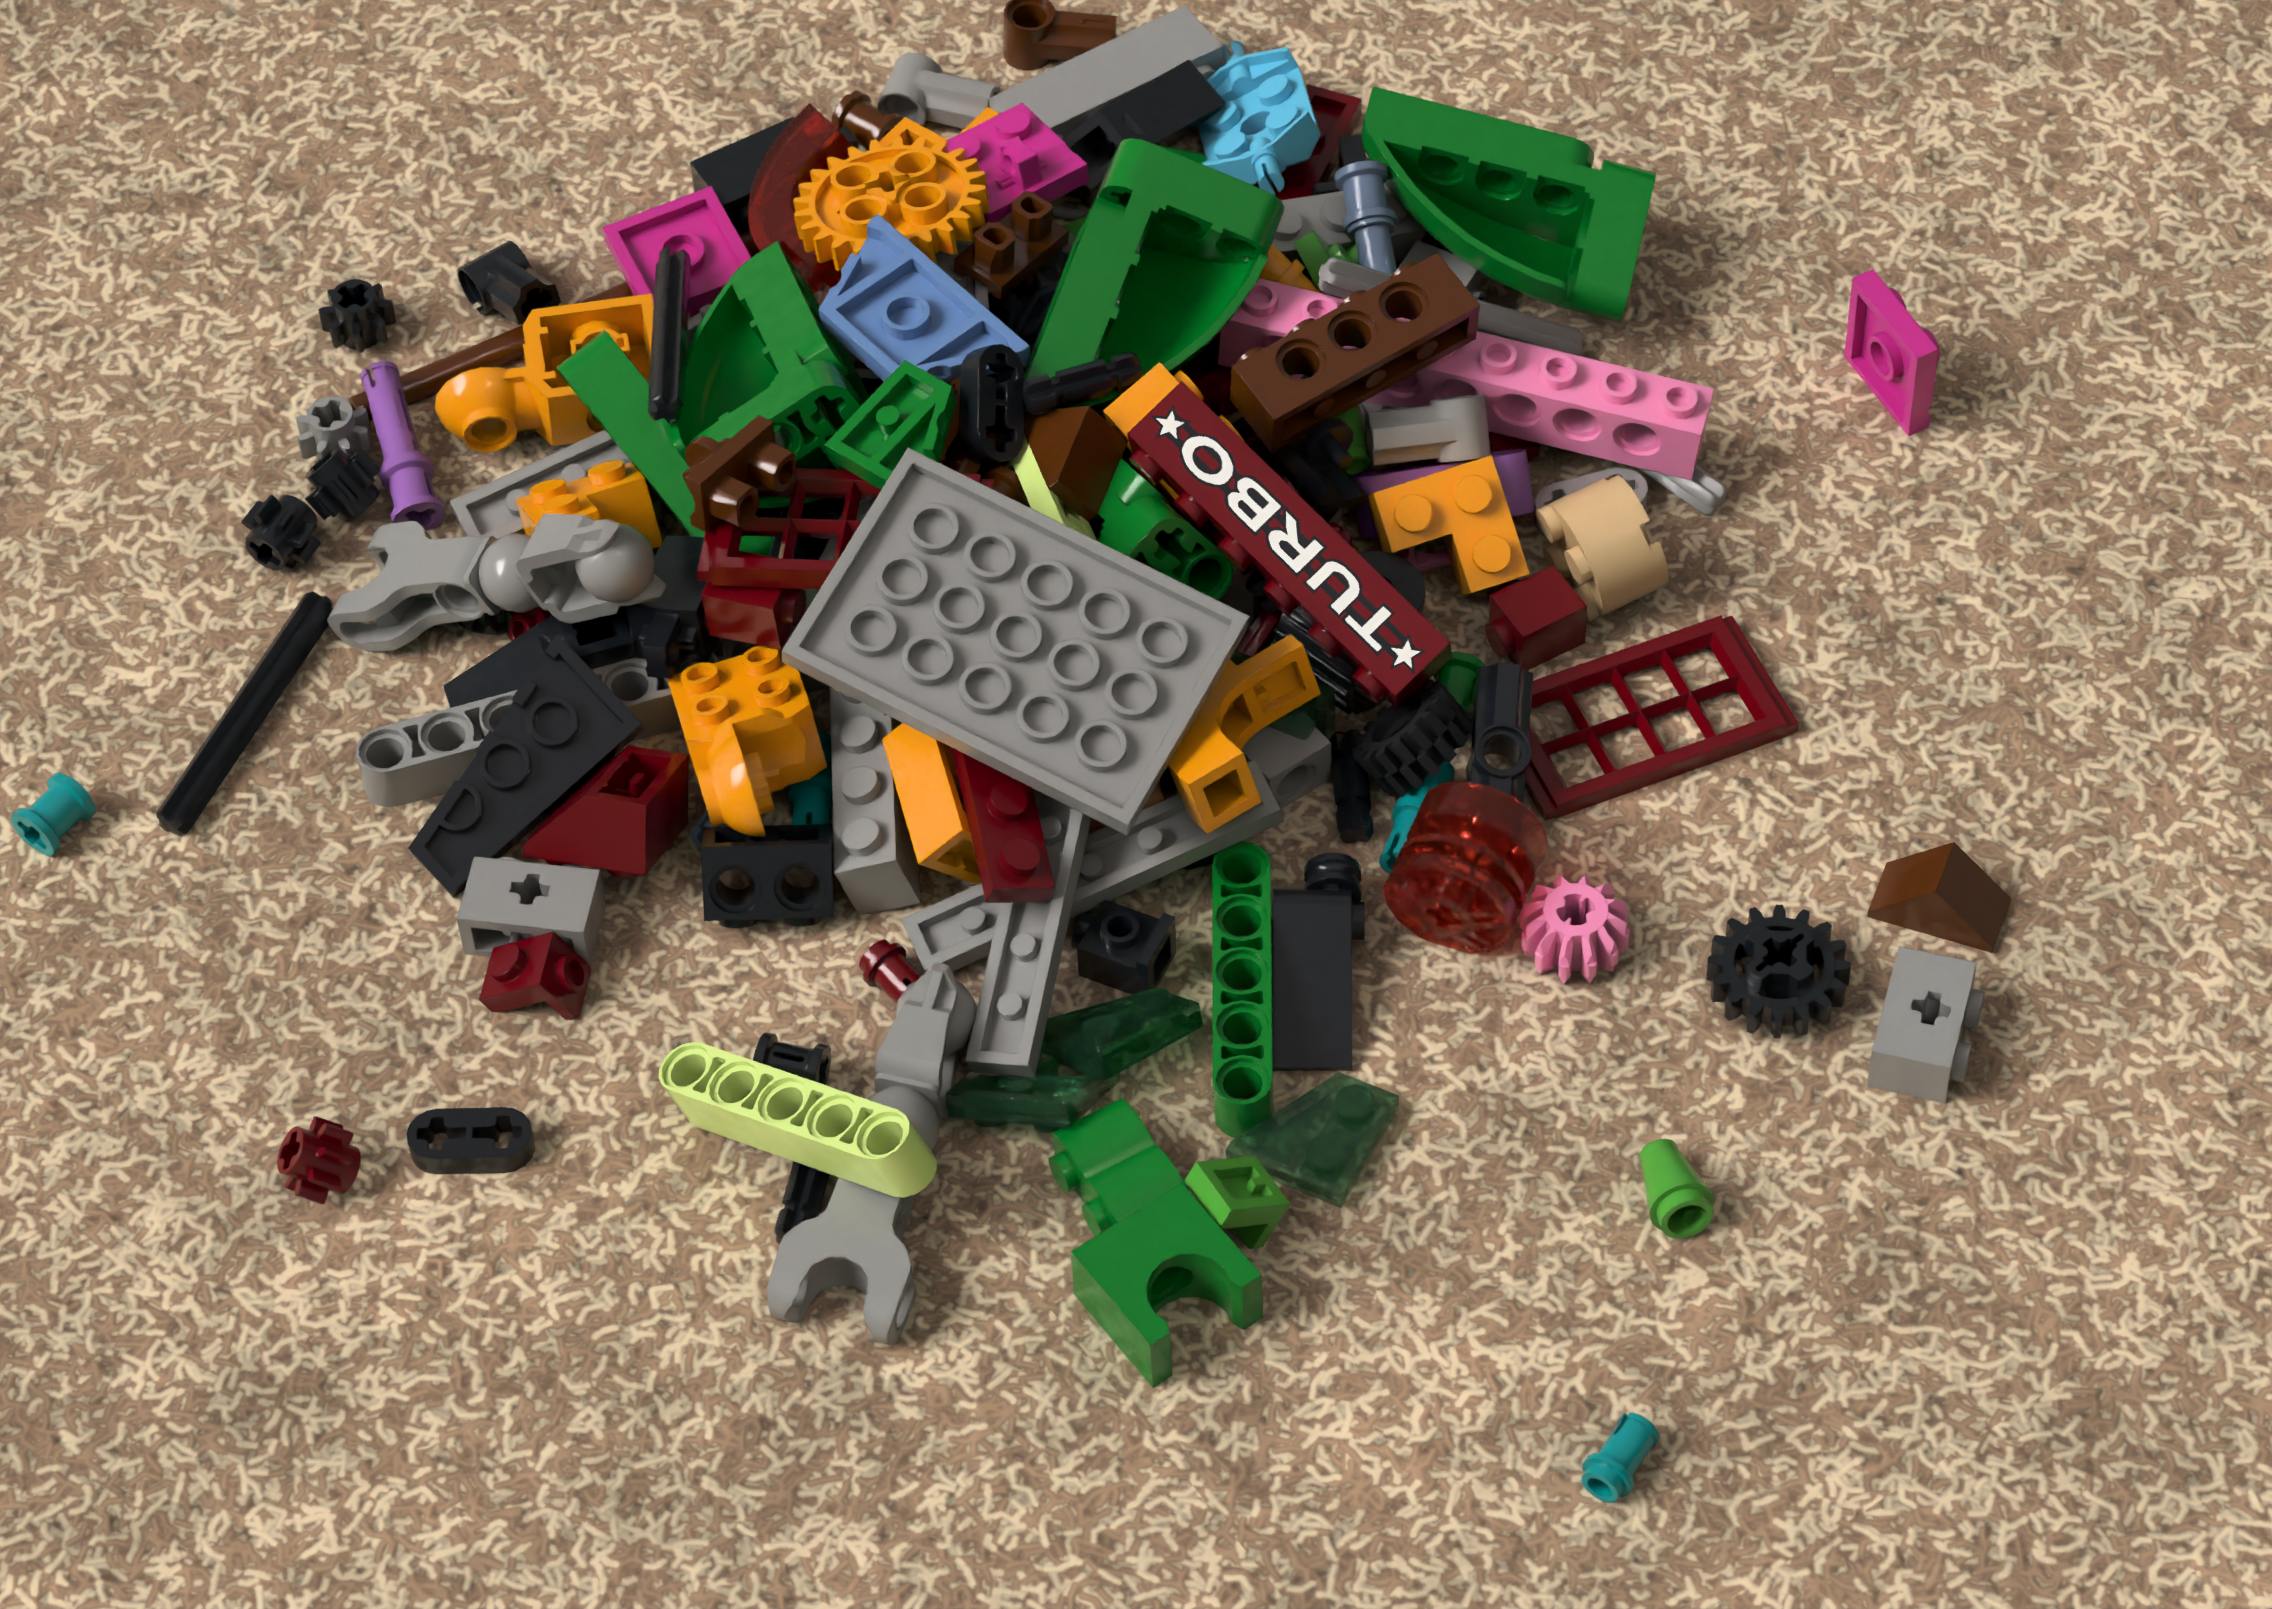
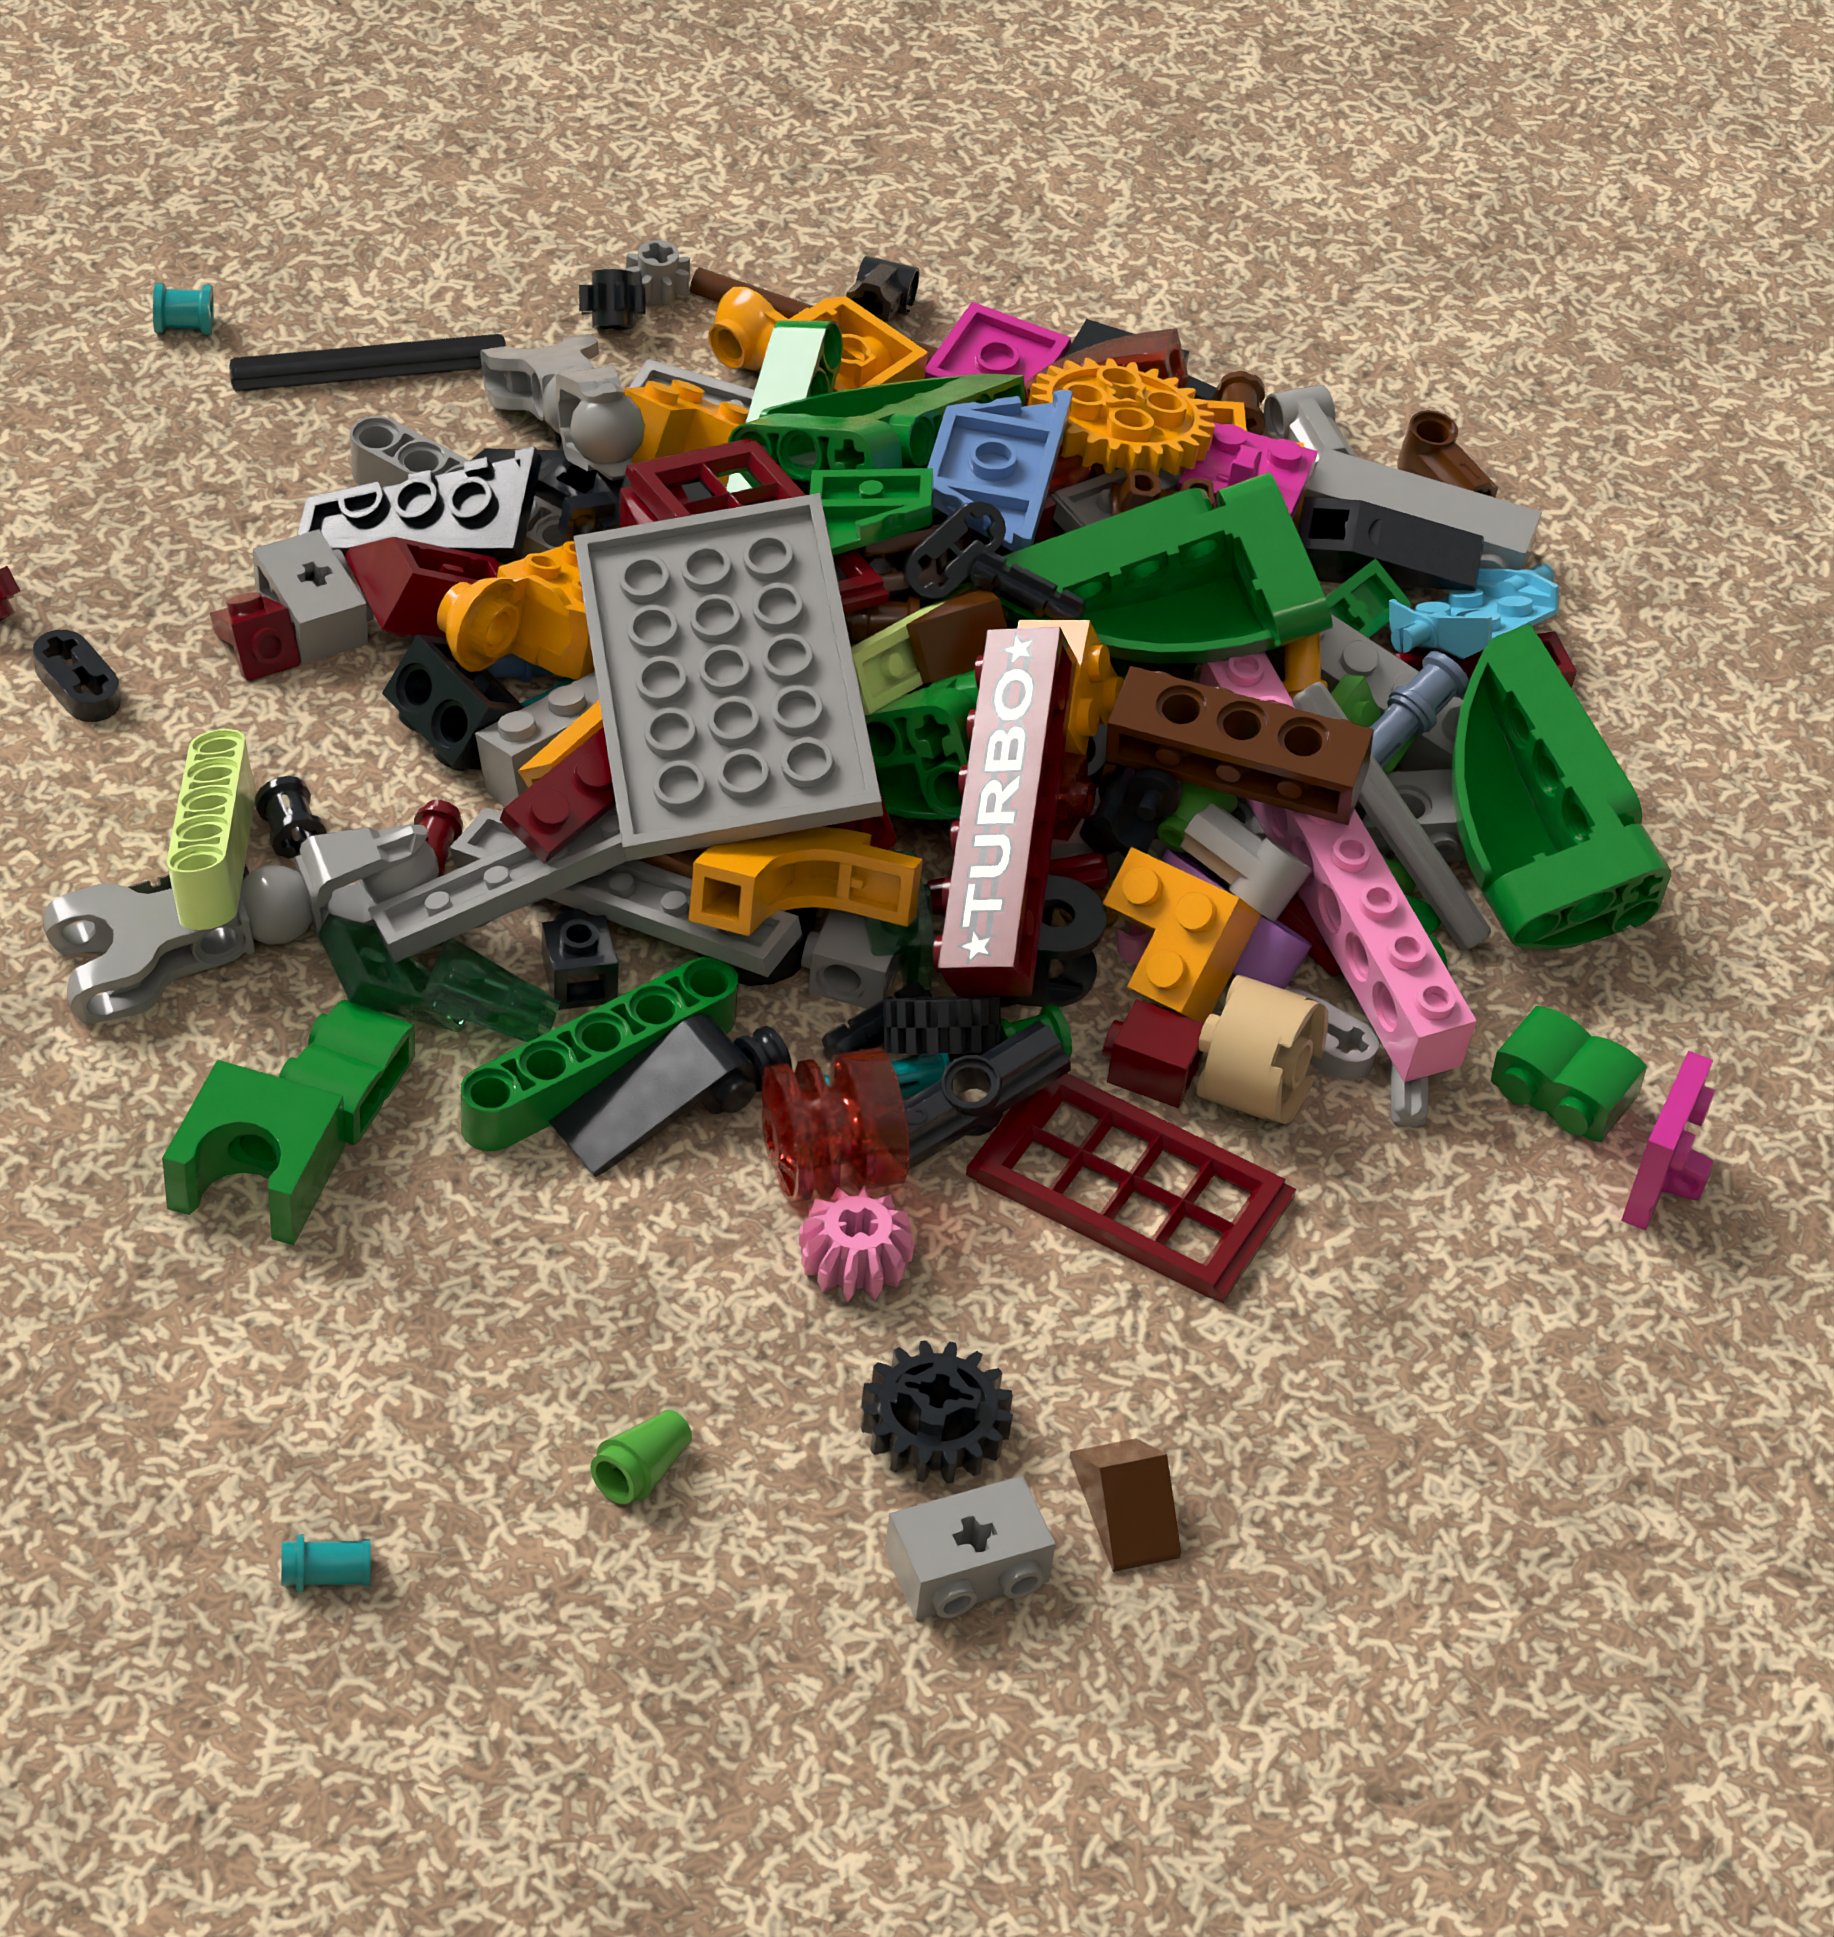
camera: 45 degrees right, 5 degrees down
(281, 532) = (538, 291): black gear -> none
(357, 315) = (777, 231): black gear -> none
(405, 469) = (659, 325): medium lavender pin -> none
(669, 335) = (878, 367): black axle -> none
(728, 472) = (728, 431): reddish brown hips -> none
(1239, 1196) = (374, 1148): bright green bracket -> none
(1321, 1137) = (502, 1188): clear green wing -> none
(1762, 373) = (1568, 1073): none -> green brick

